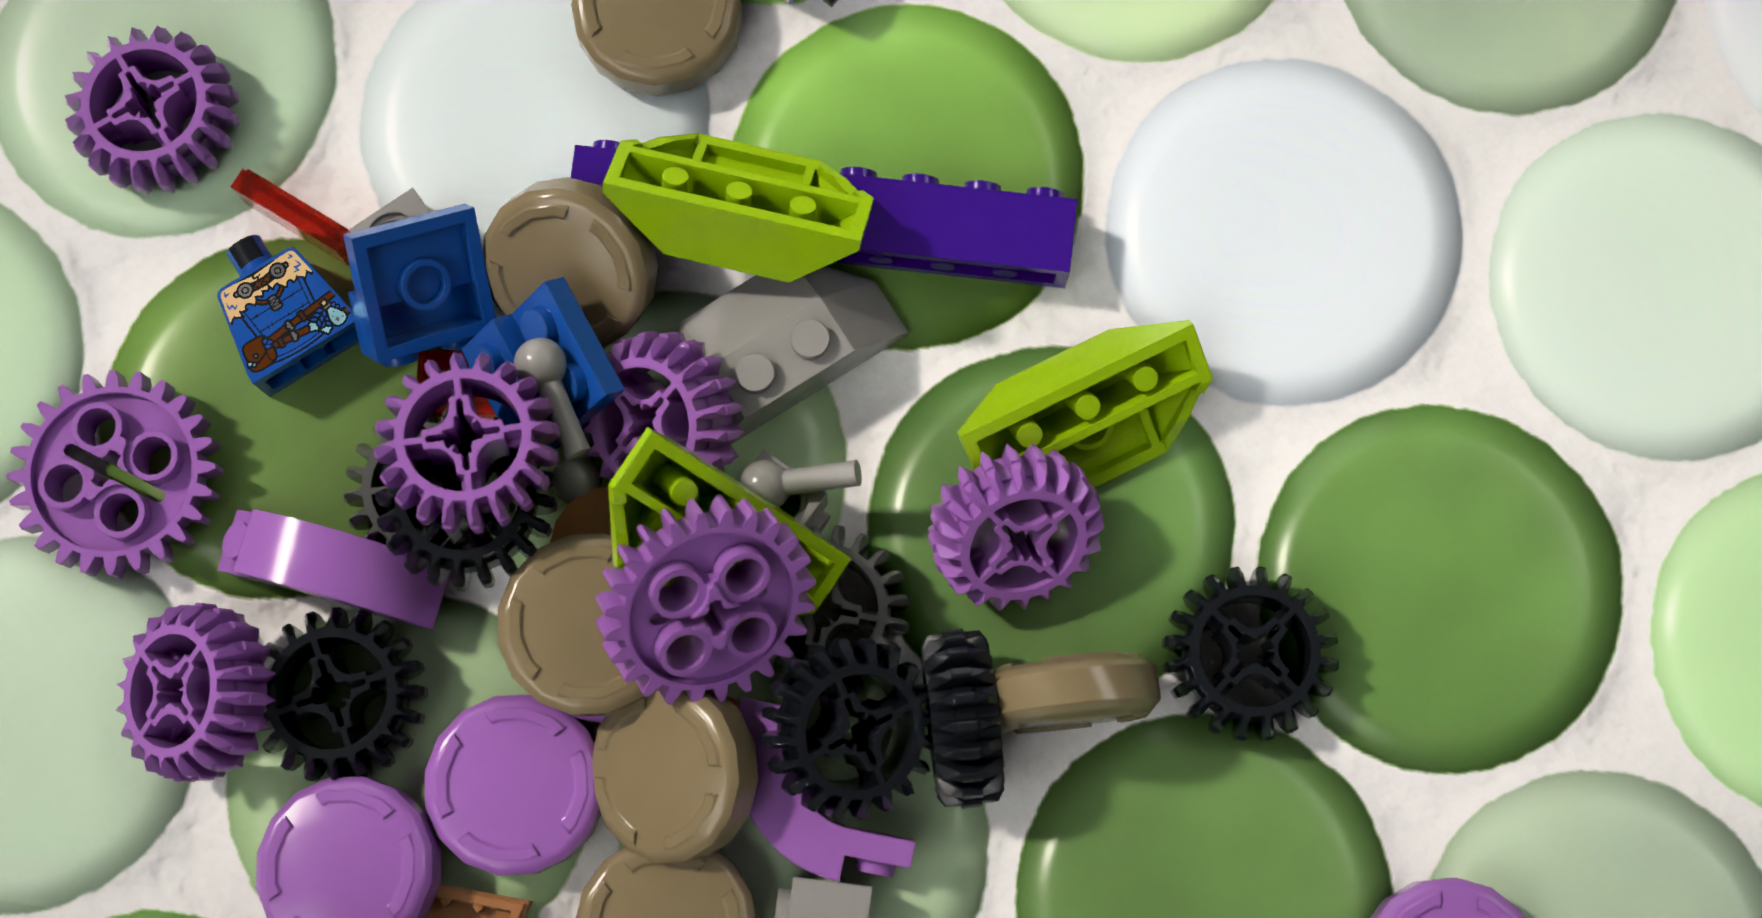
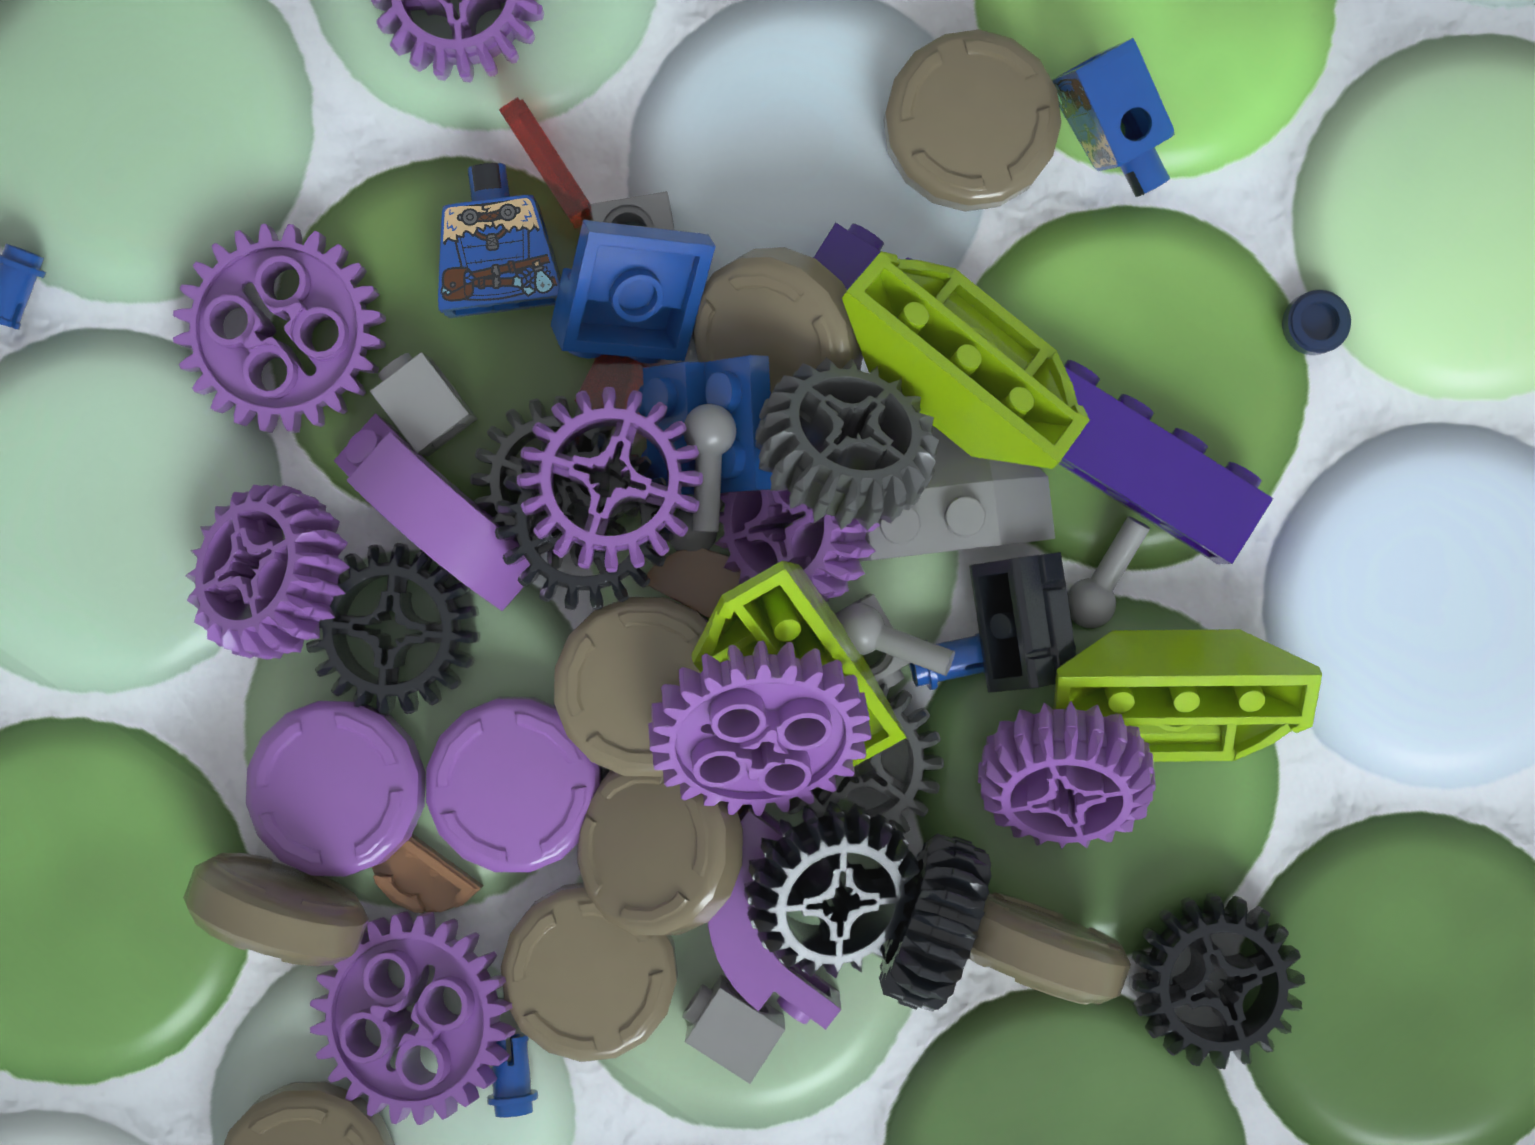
camera: 30 degrees right, 10 degrees up
(276, 476) = (422, 402): none -> light grey brick
(665, 315) = (846, 443): none -> dark grey gear
(878, 474) = (966, 662): none -> blue pin
(909, 410) = (1022, 620): none -> black brick
(968, 371) = (1093, 598): none -> light grey bar
(1044, 41) = (1316, 322): none -> dark blue tile

